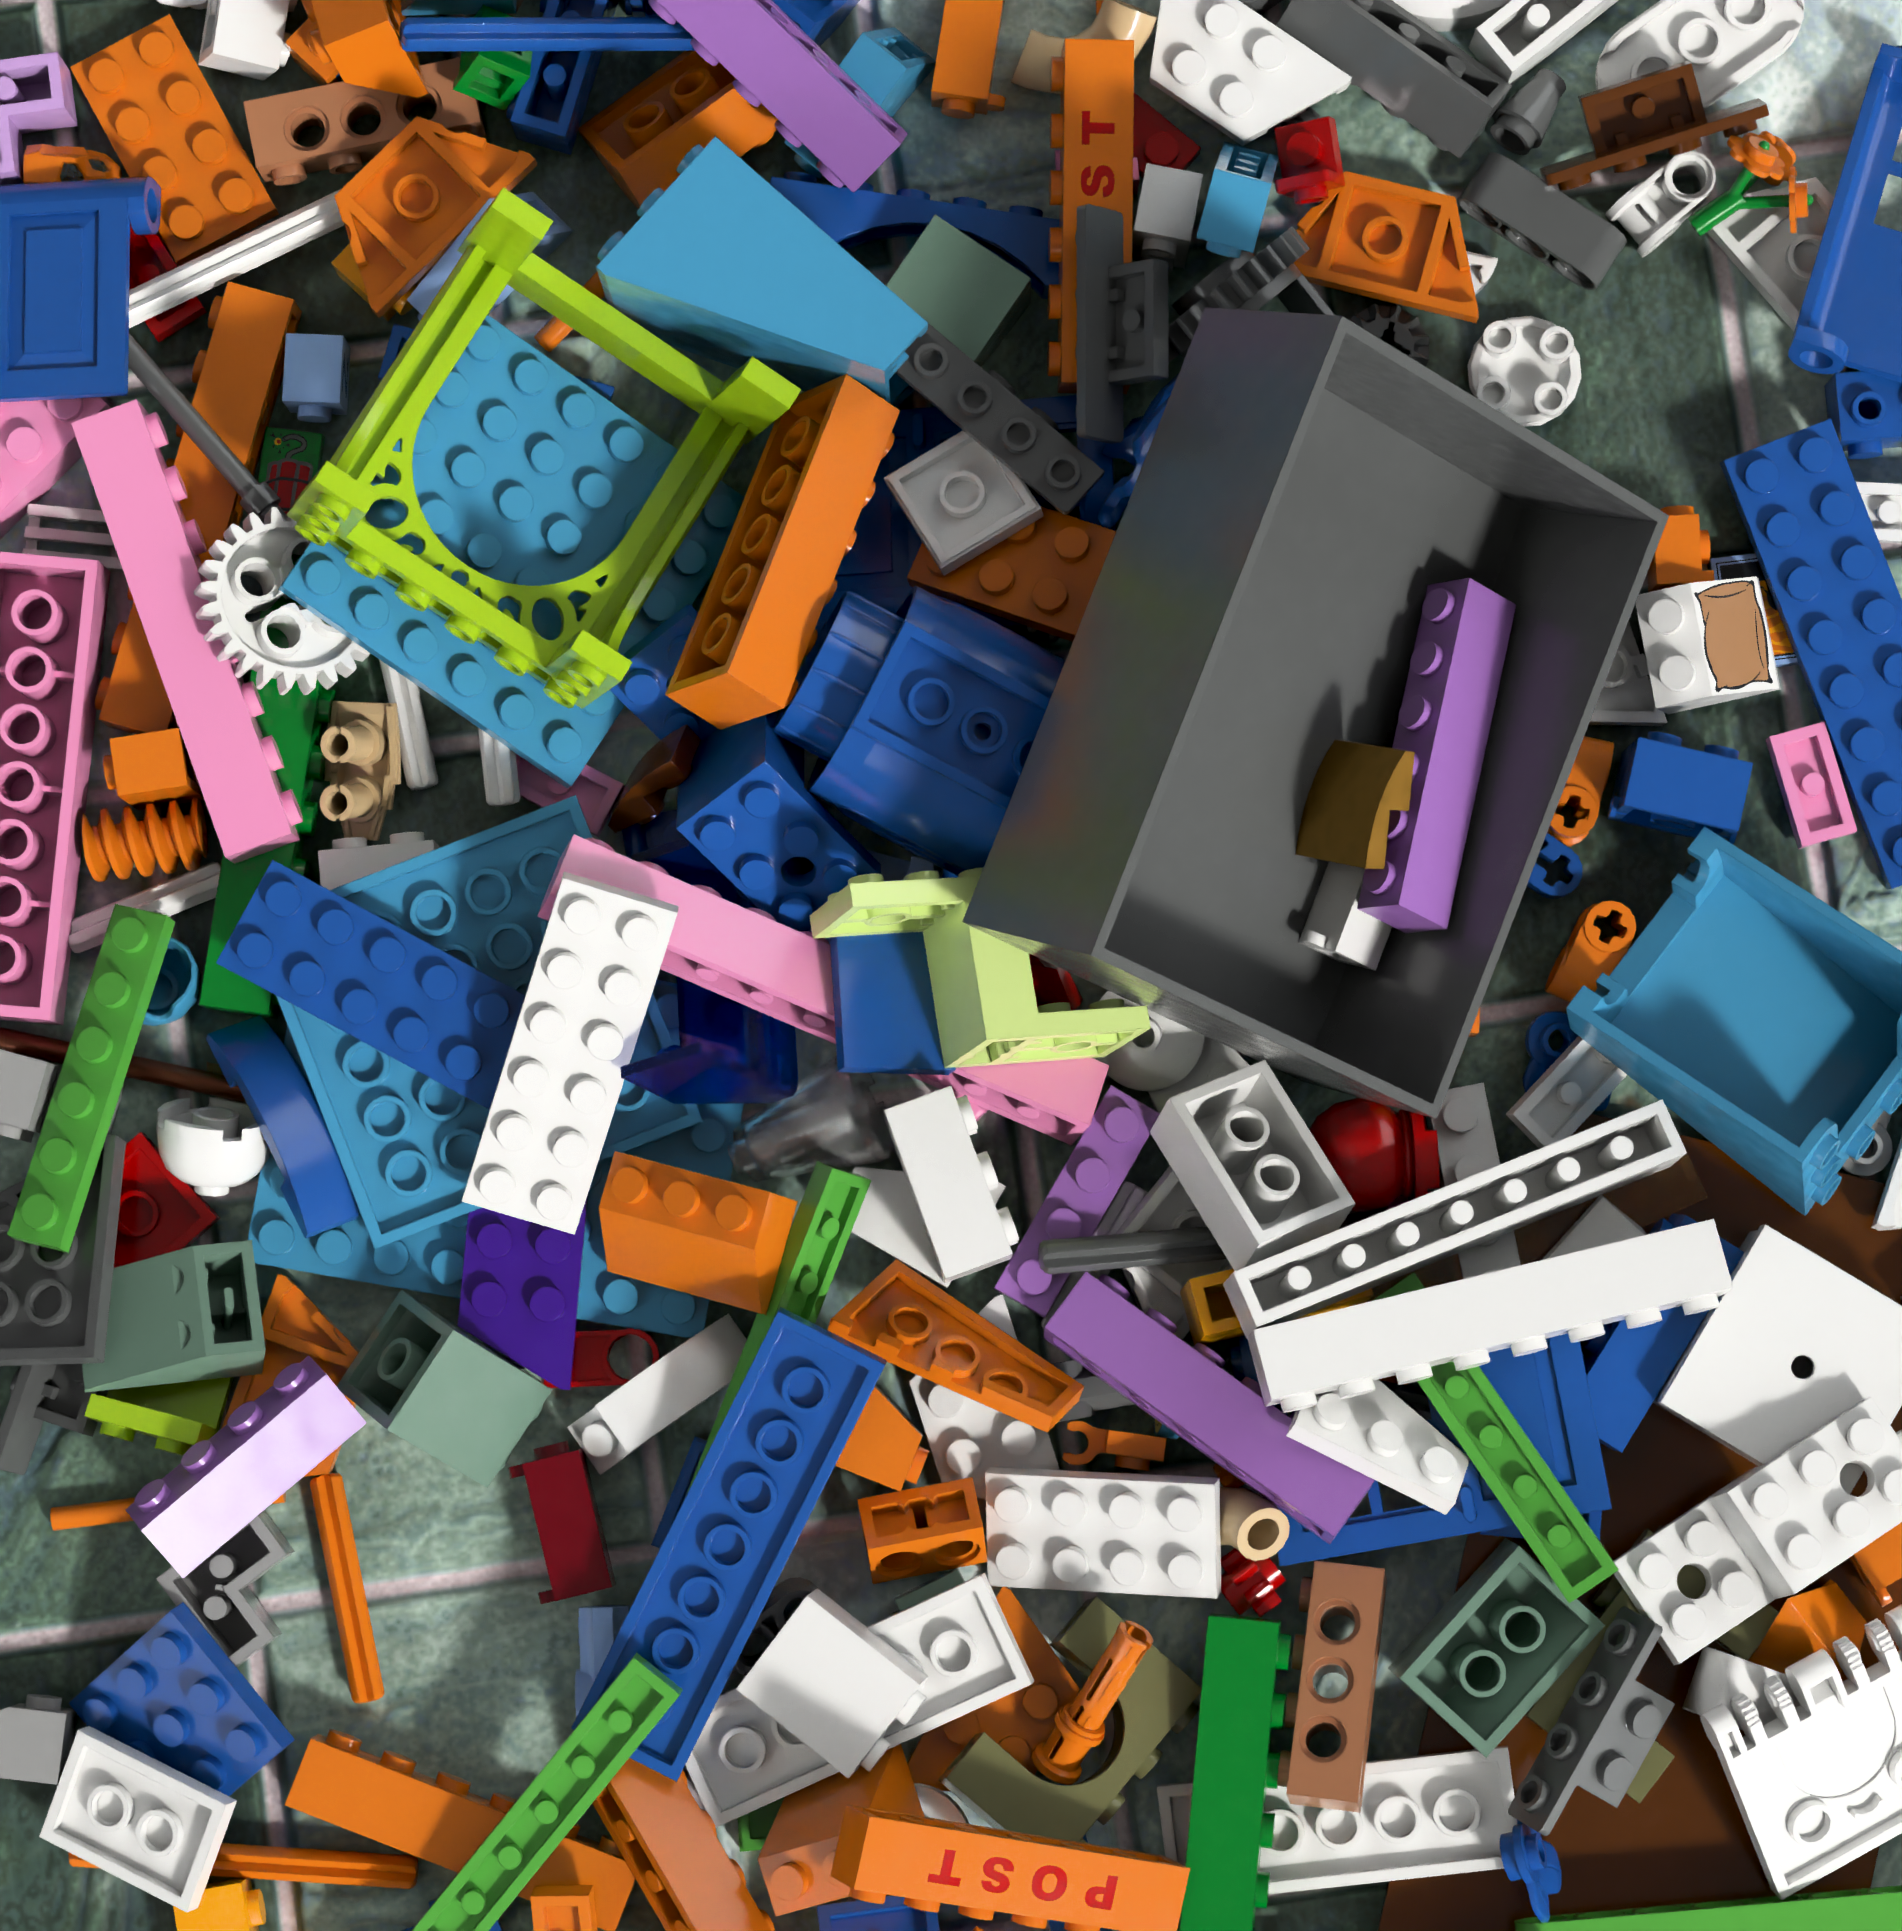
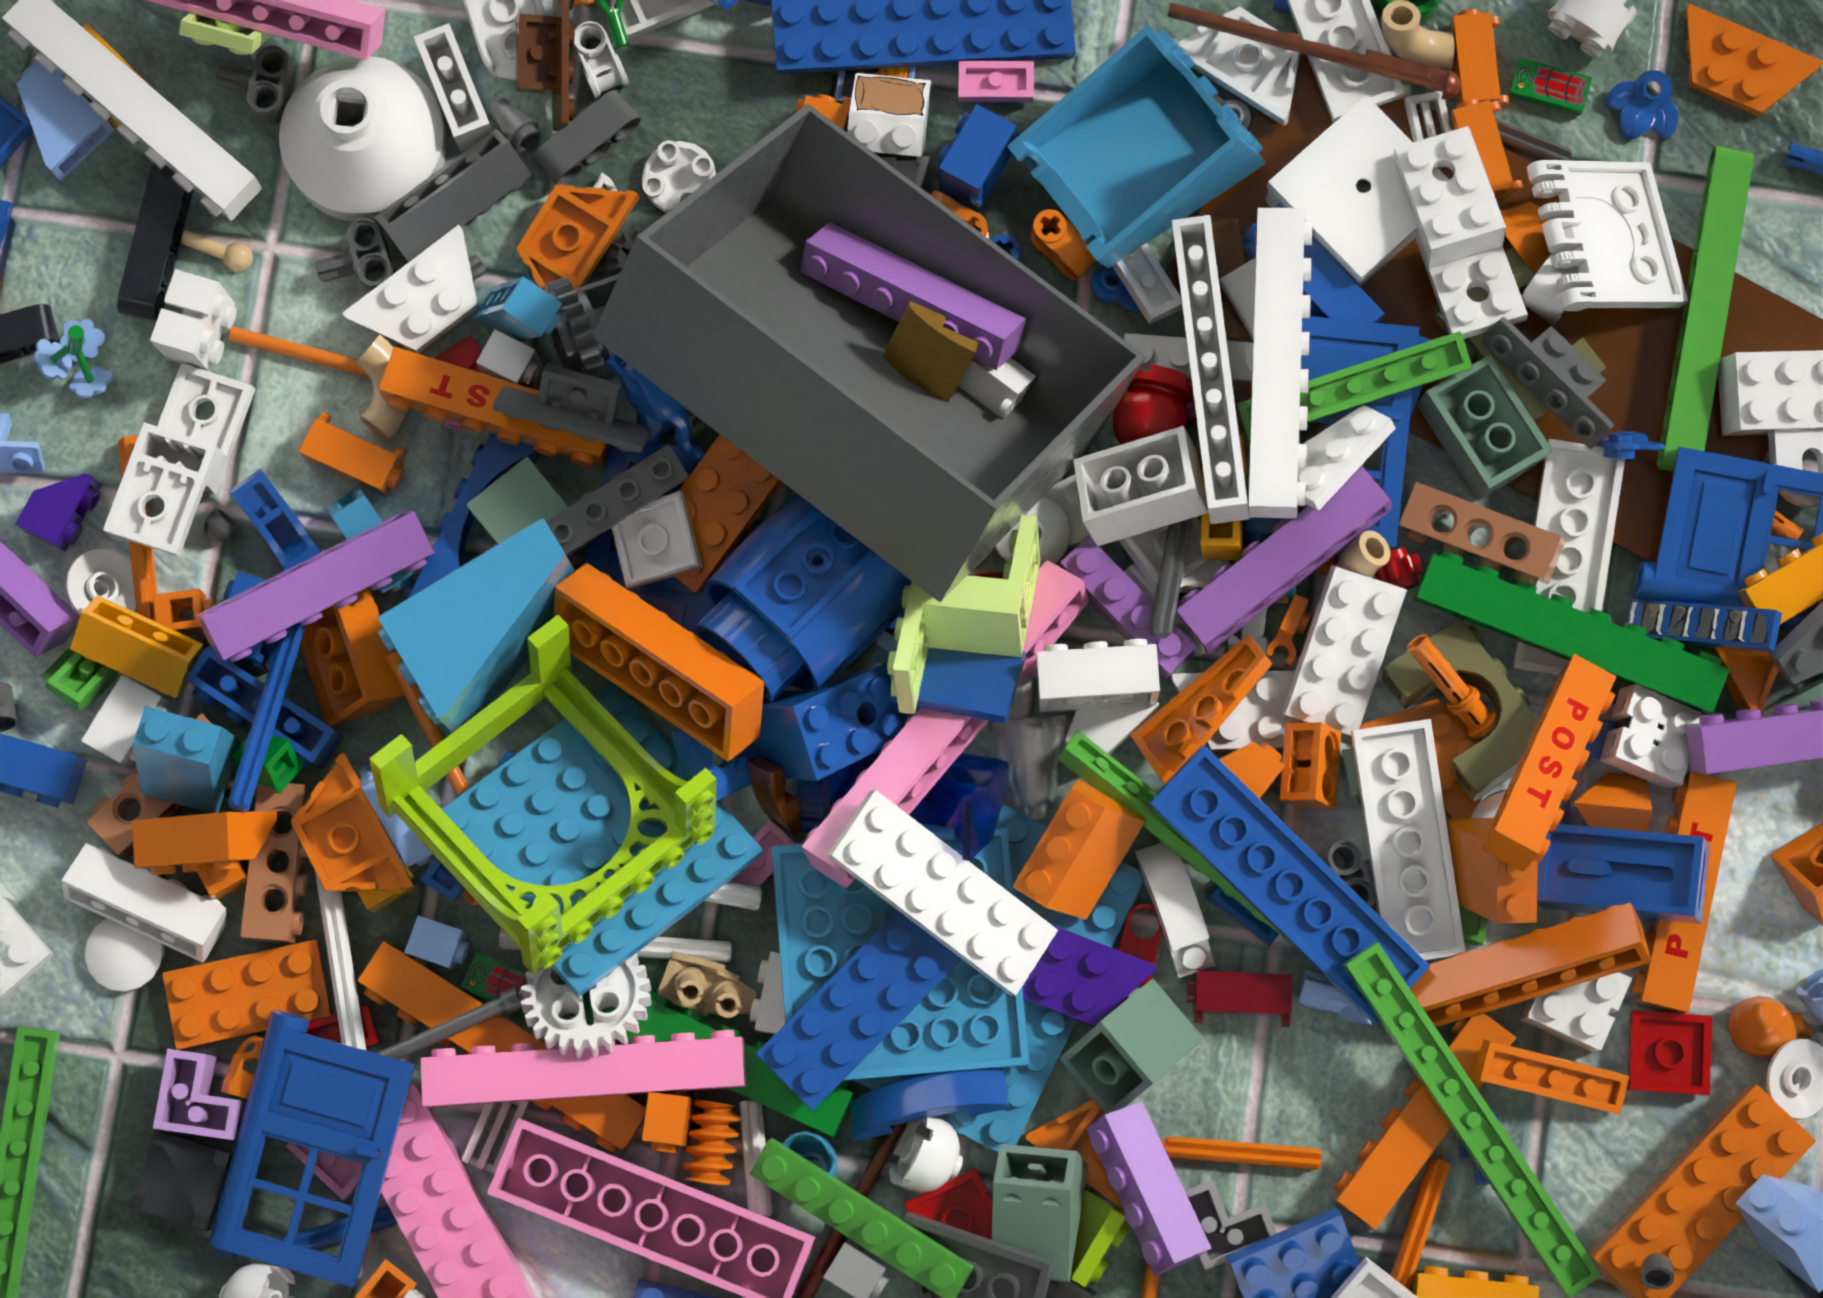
camera: 70 degrees left, 5 degrees down
(834, 1684) = (1397, 844): white brick -> none
(1309, 160) = (500, 265): red bracket -> none

